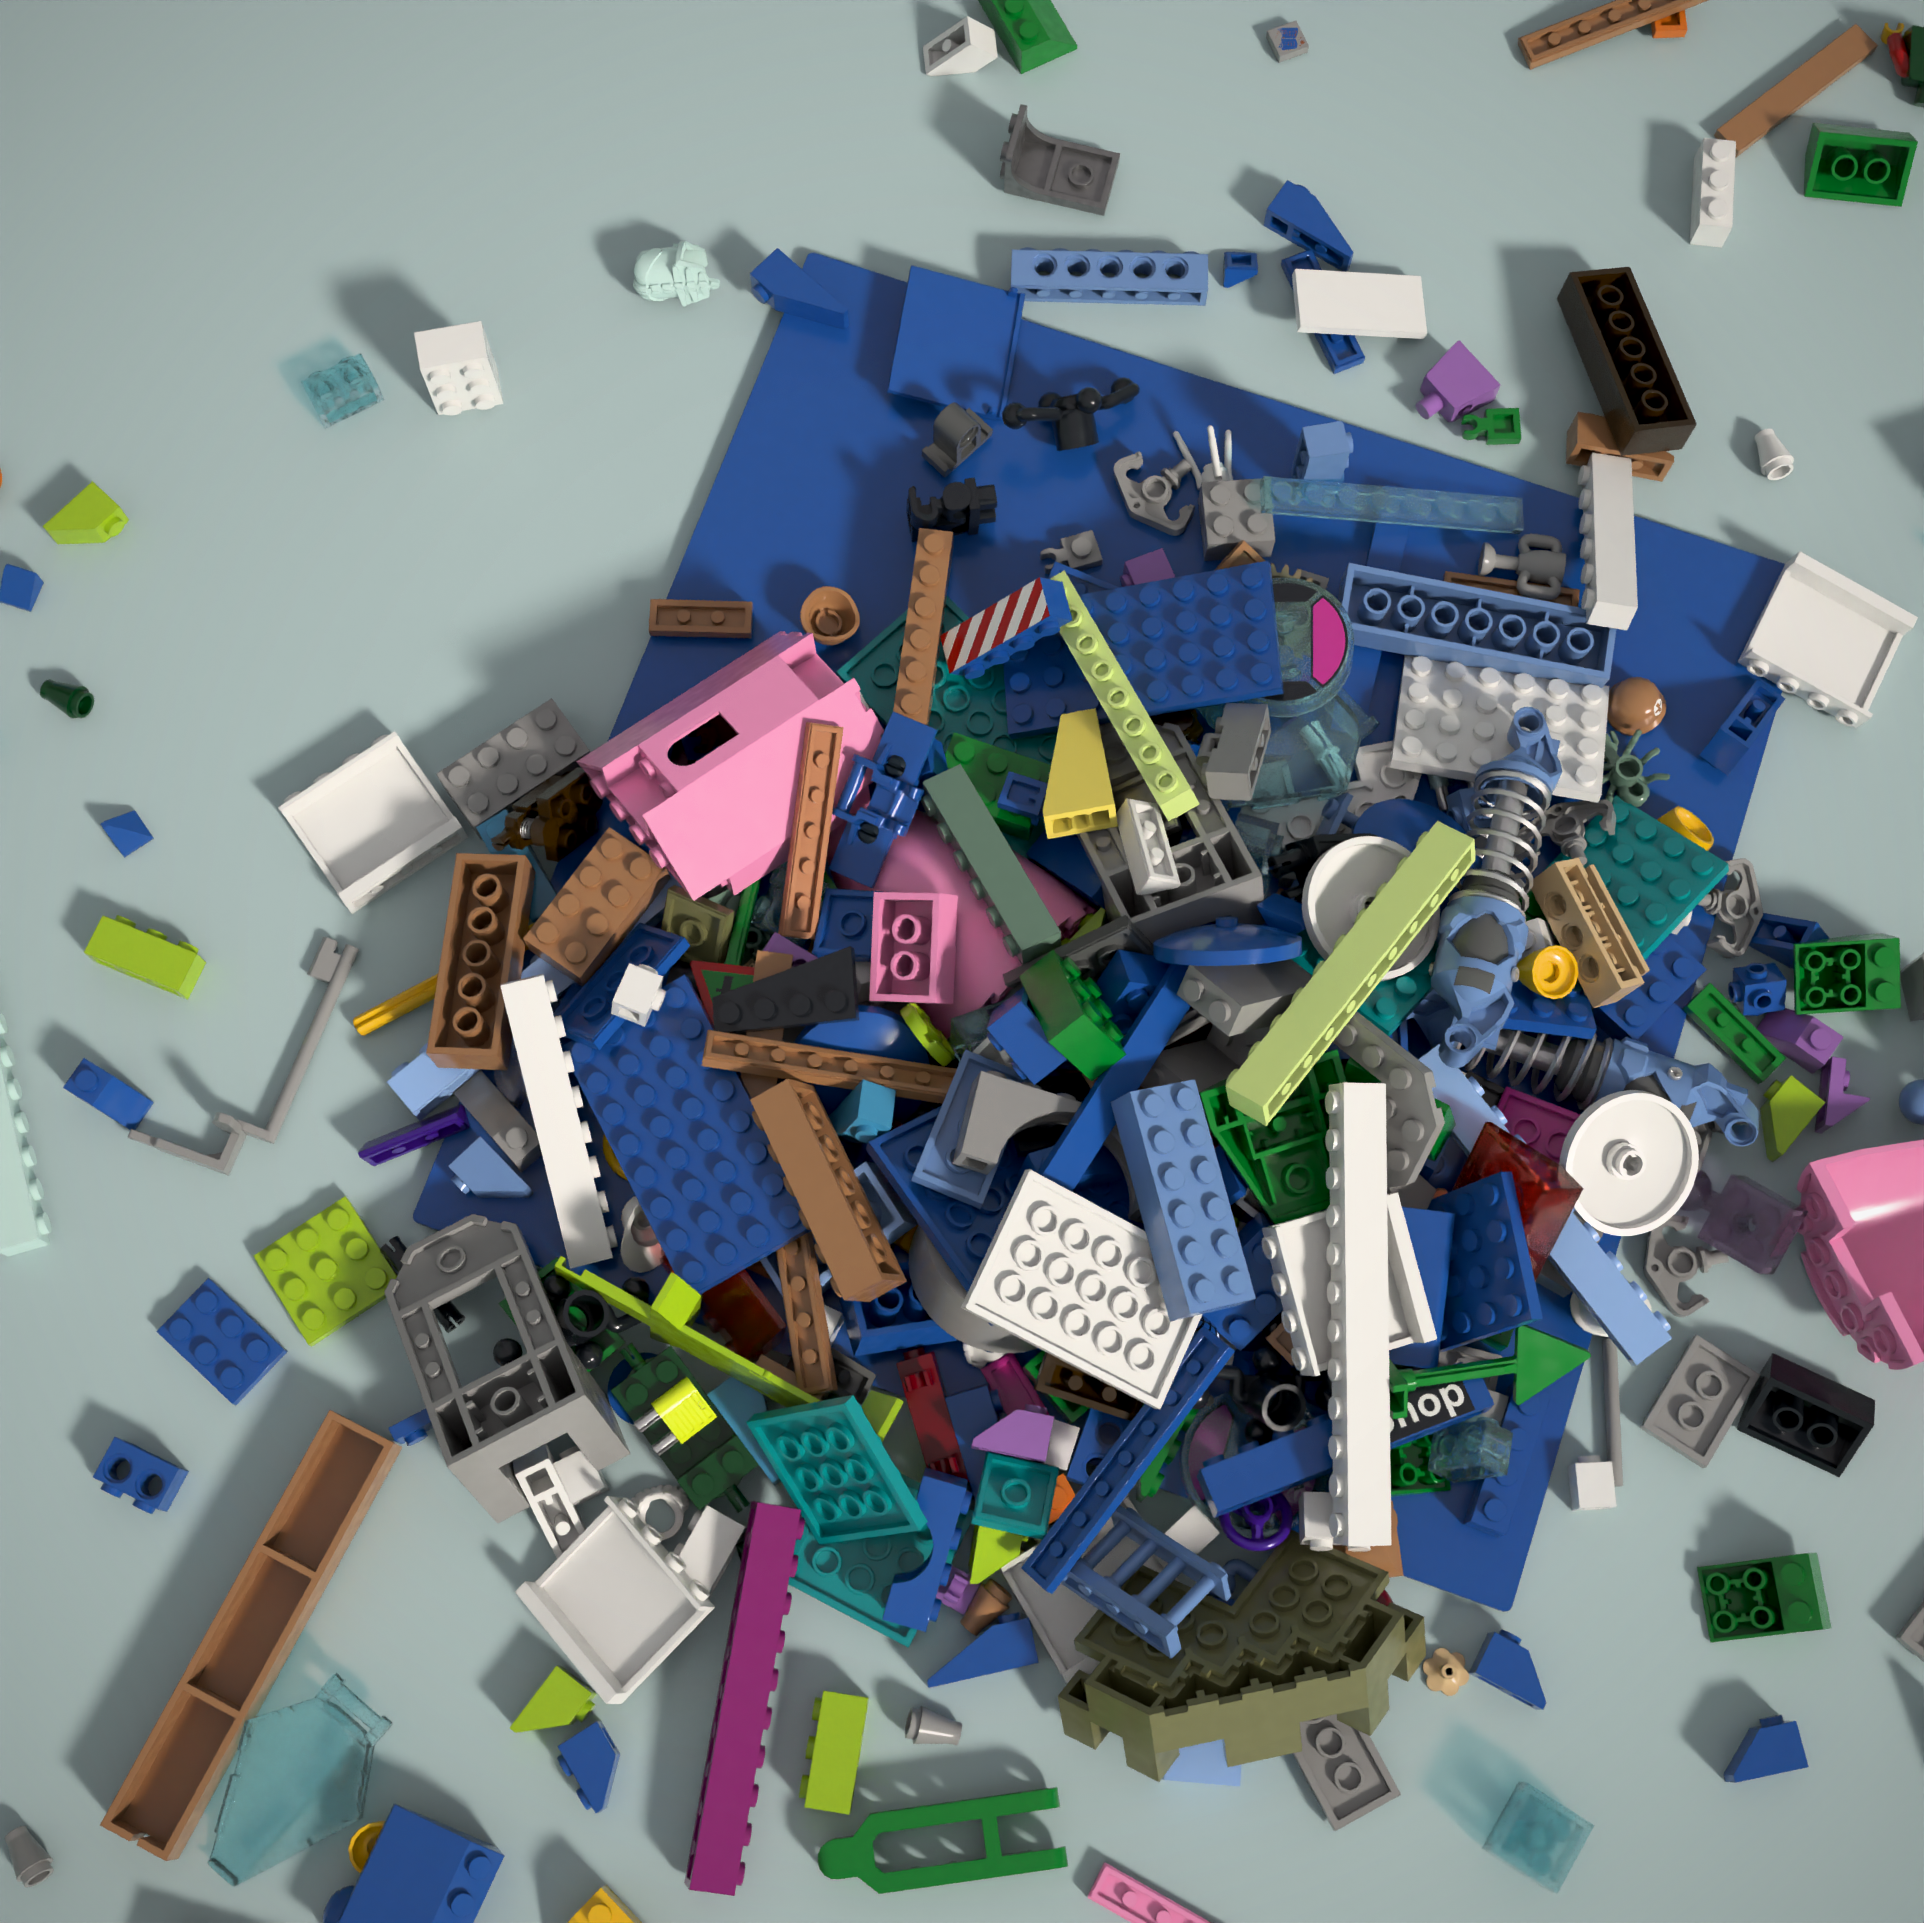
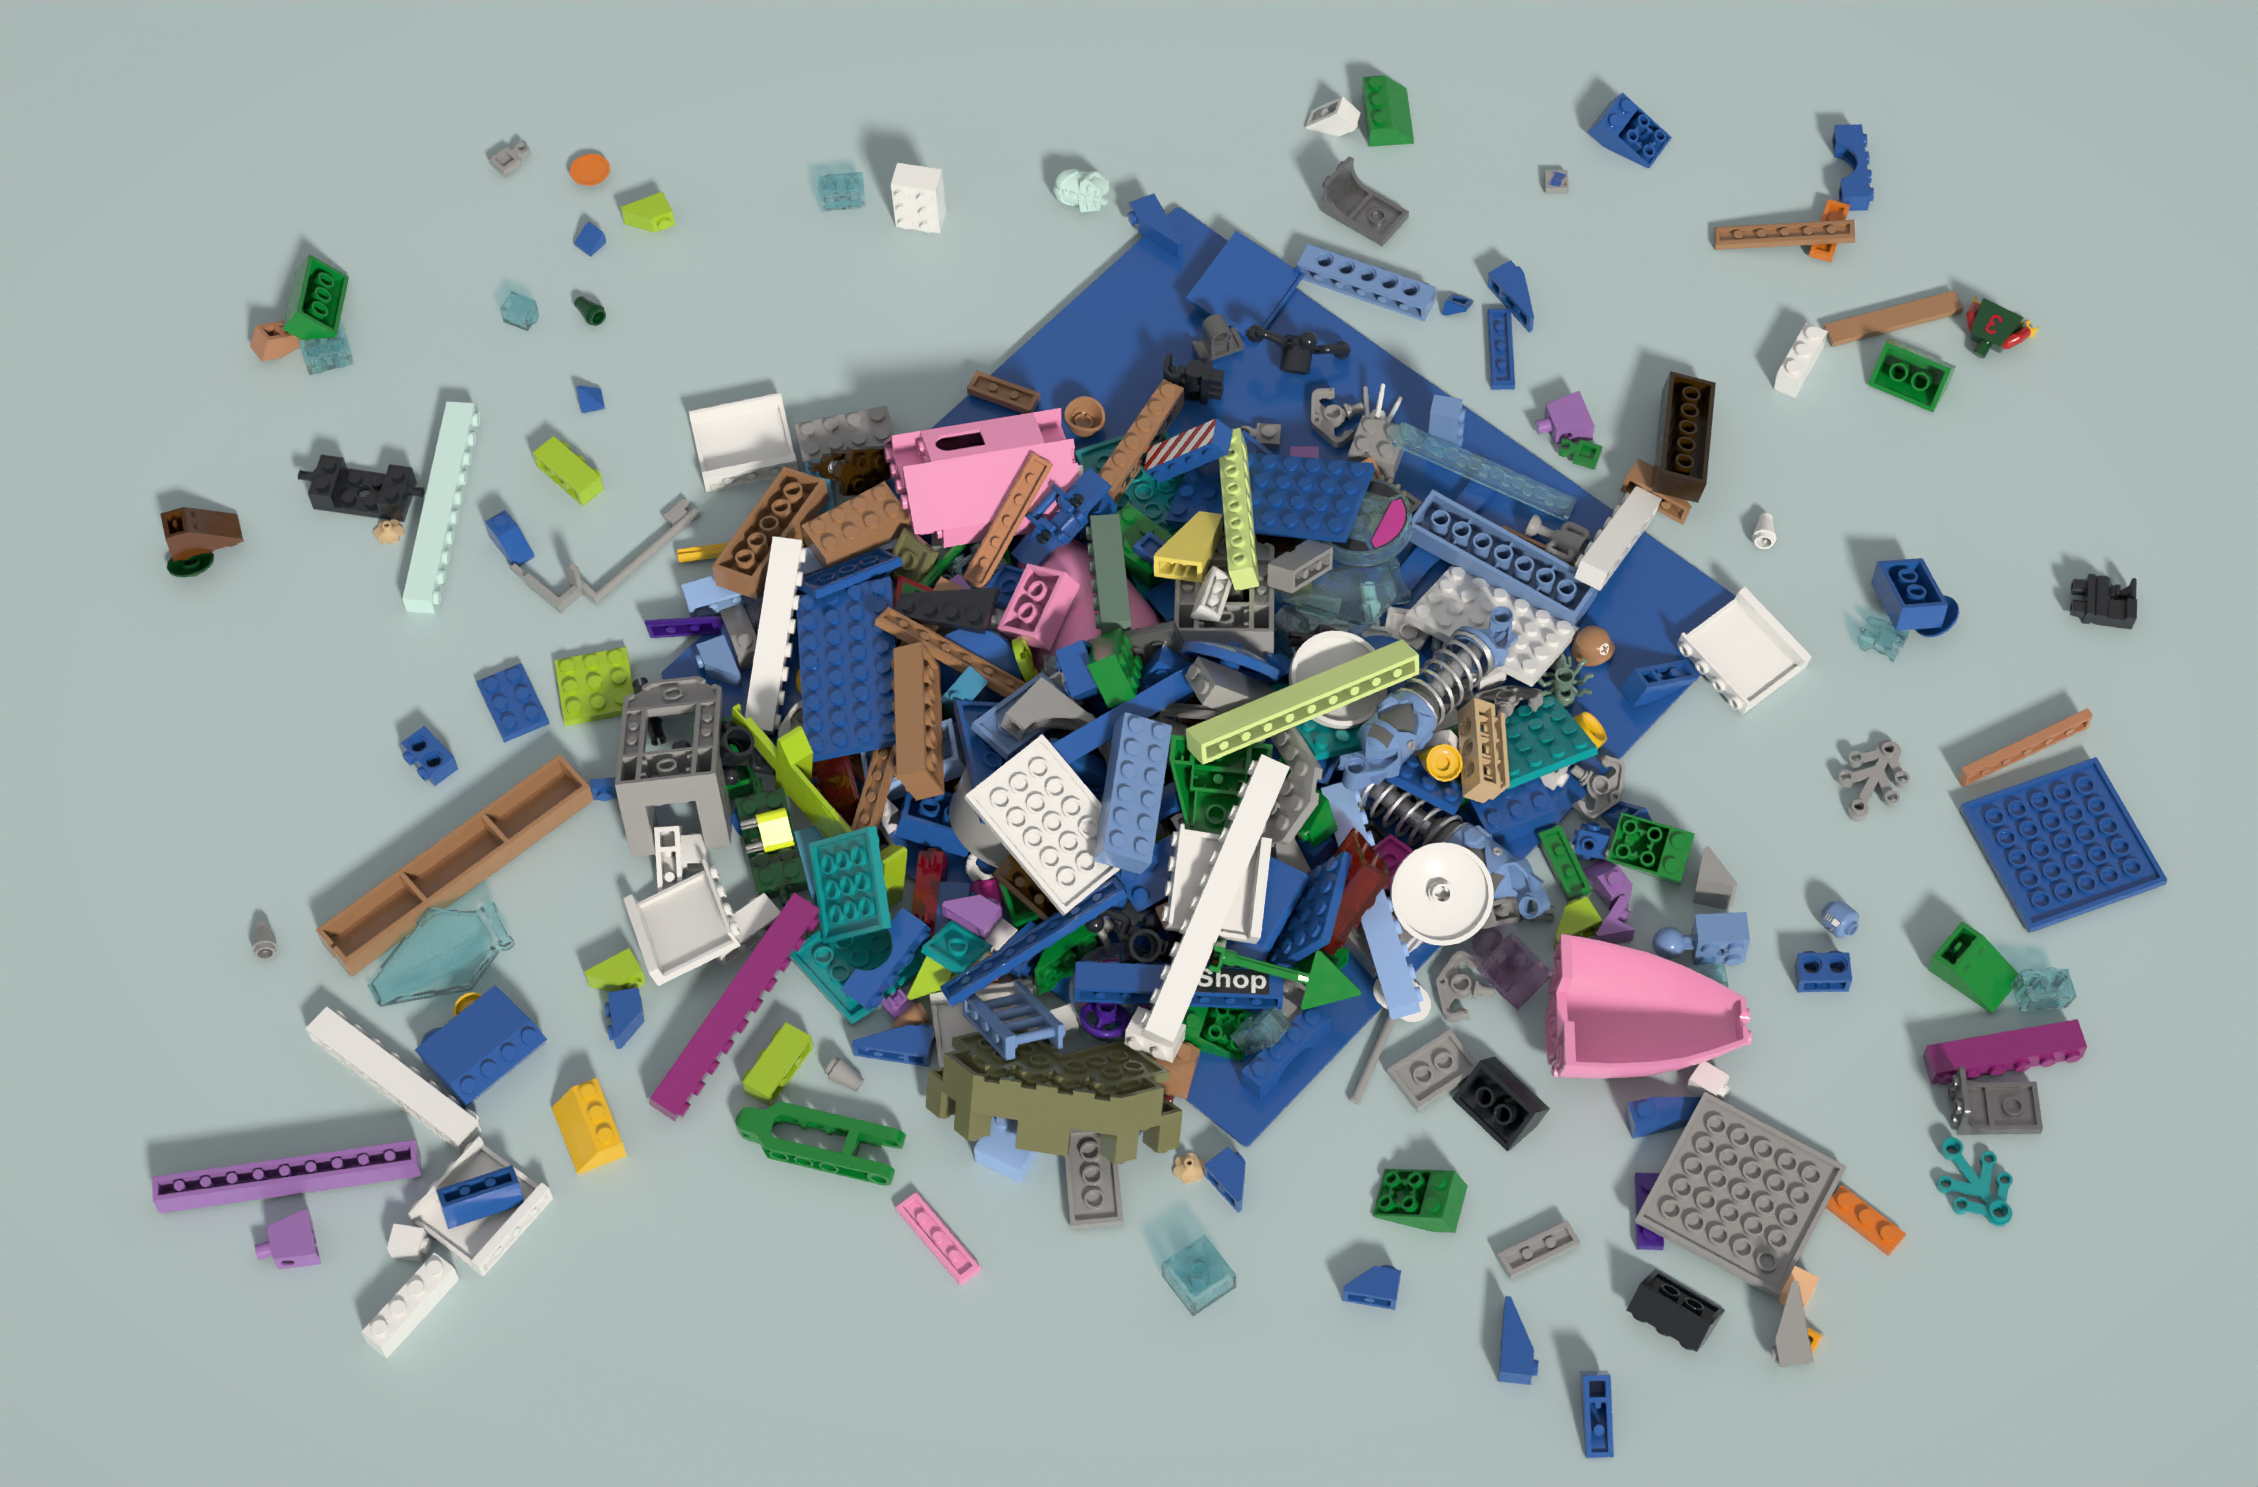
camera: 25 degrees right, 15 degrees down
(638, 994) = (854, 573): white brick -> none
(675, 1498) = (747, 889): white piece -> none
(1359, 304) = (1524, 349): white tile -> none
(1591, 1484) = (1336, 1091): white brick -> none

